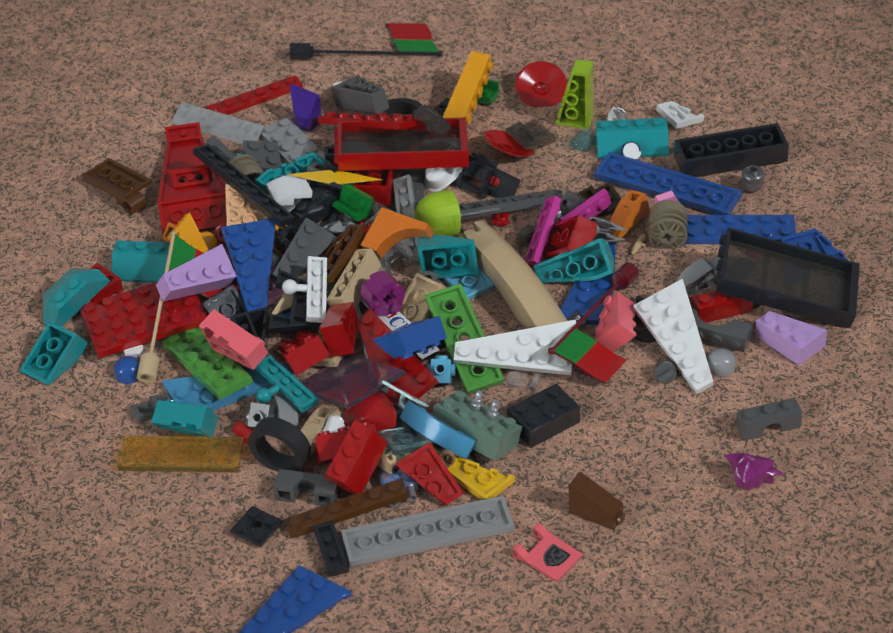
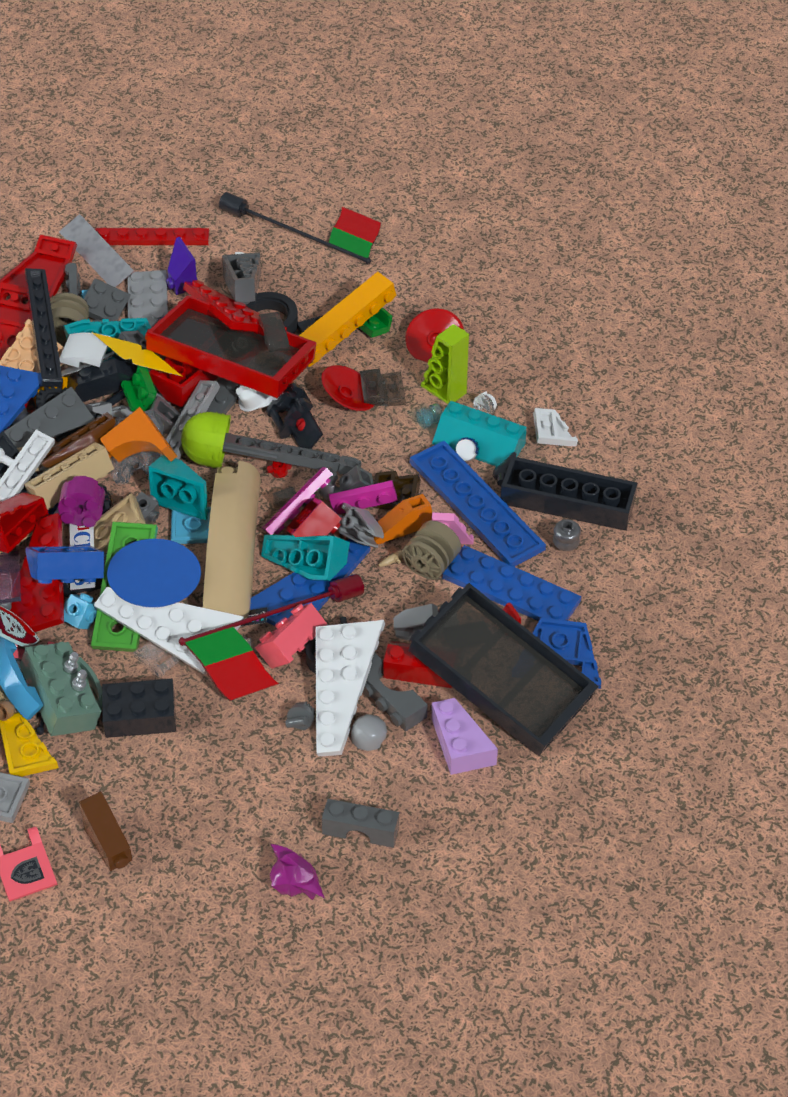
camera: 25 degrees right, 5 degrees up
(484, 317) = (154, 573): none -> blue sticker
(668, 155) = (500, 471): none -> black animal

